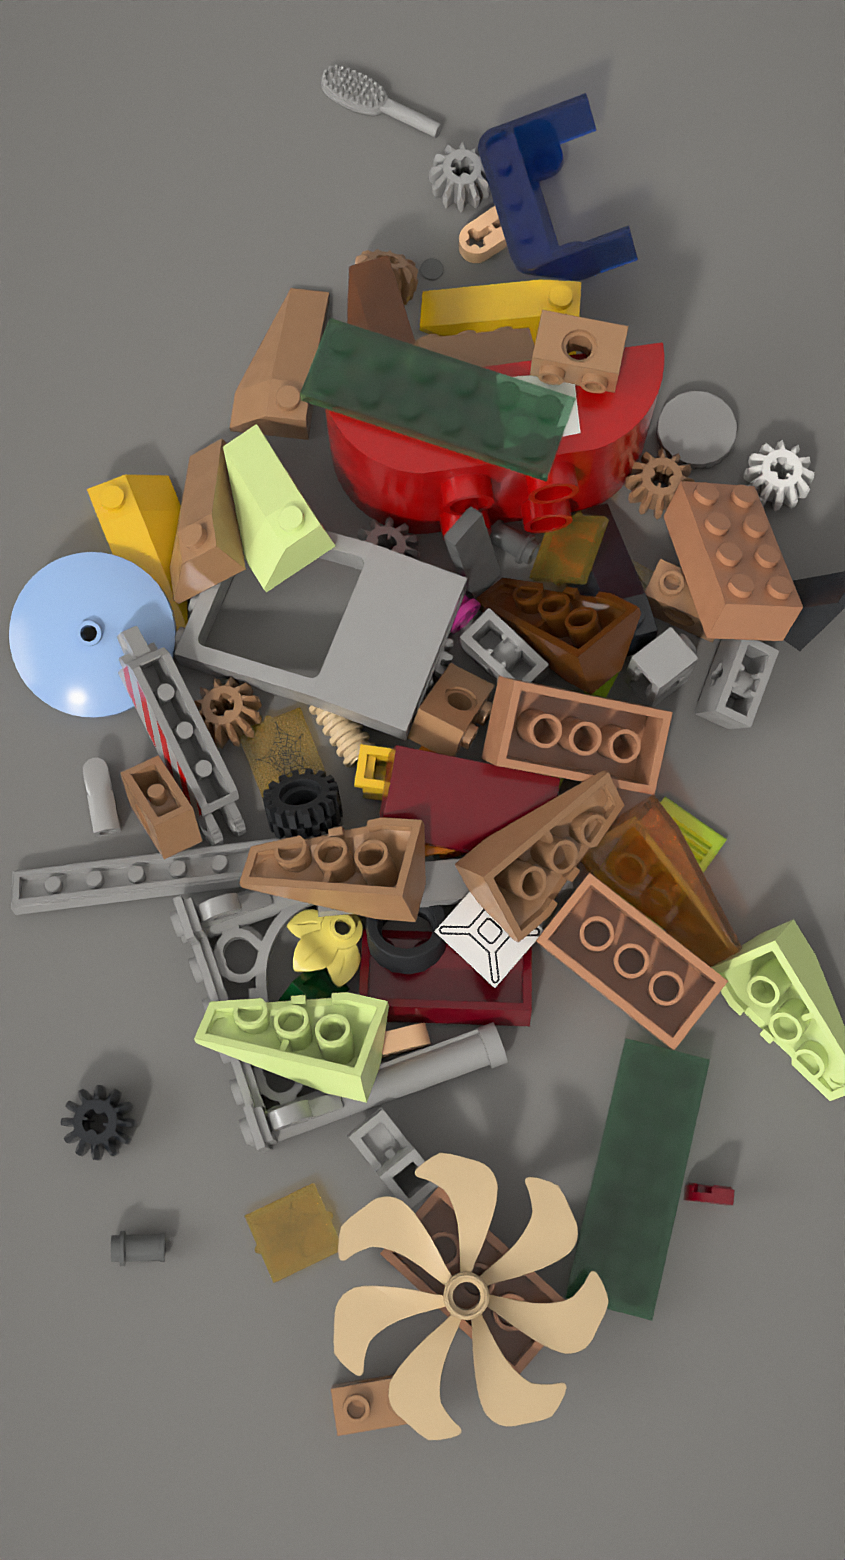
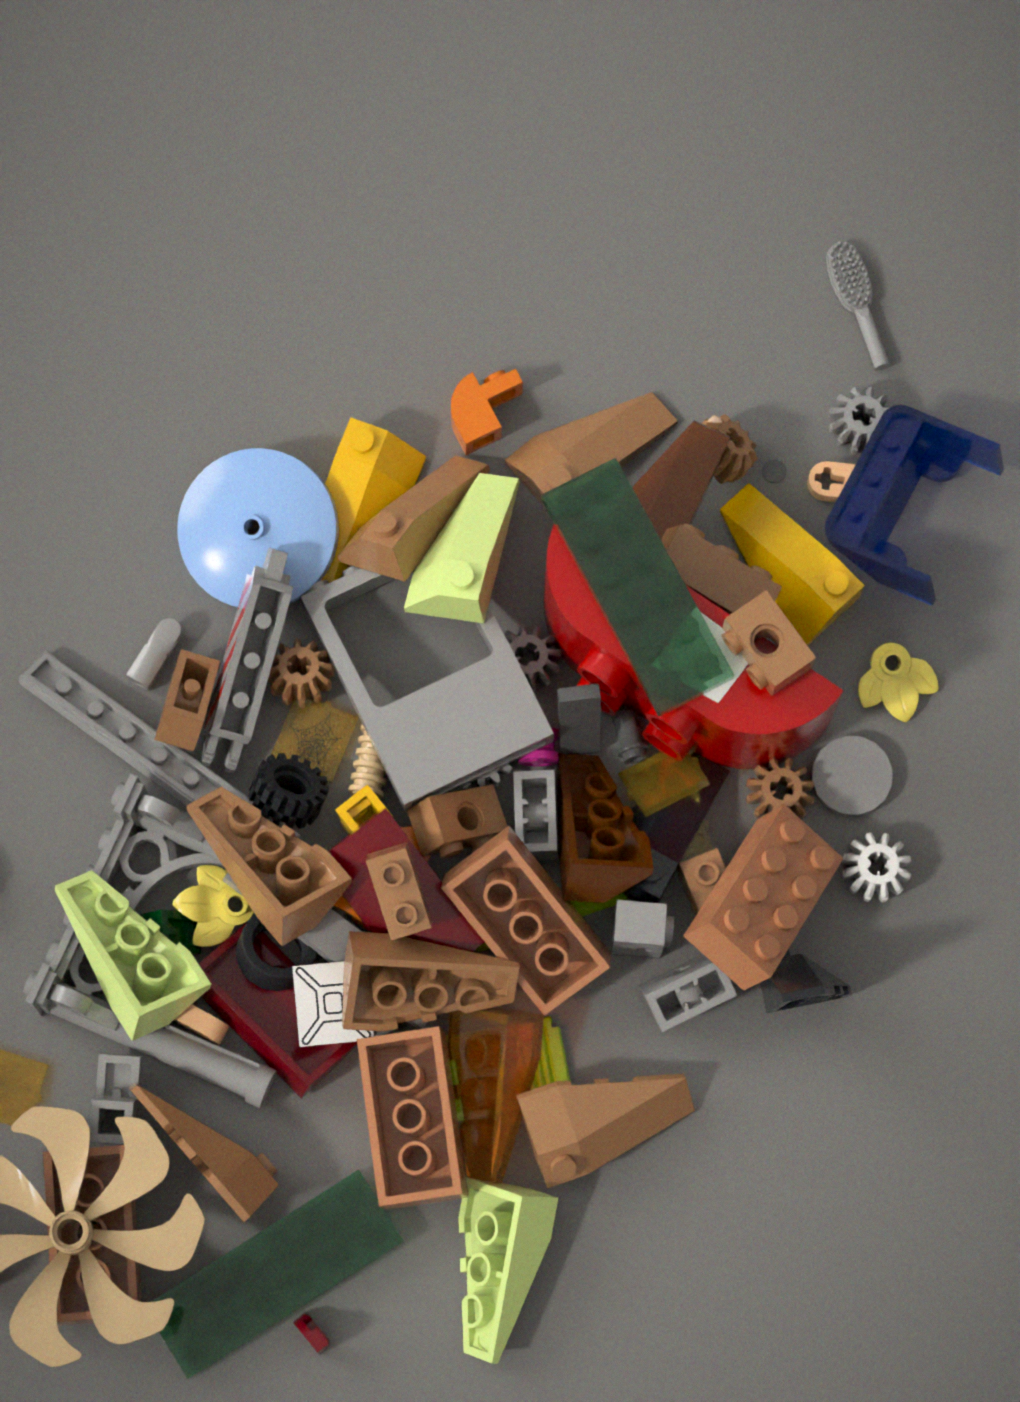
camera: 40 degrees right, 0 degrees up
(173, 411) = (473, 406): none -> orange brick
(467, 796) = (399, 891): none -> medium nougat brick
(529, 1129) = (227, 1166): none -> medium nougat wedge
(669, 326) = (896, 688): none -> light yellow plate
(762, 848) = (591, 1124): none -> medium nougat wedge

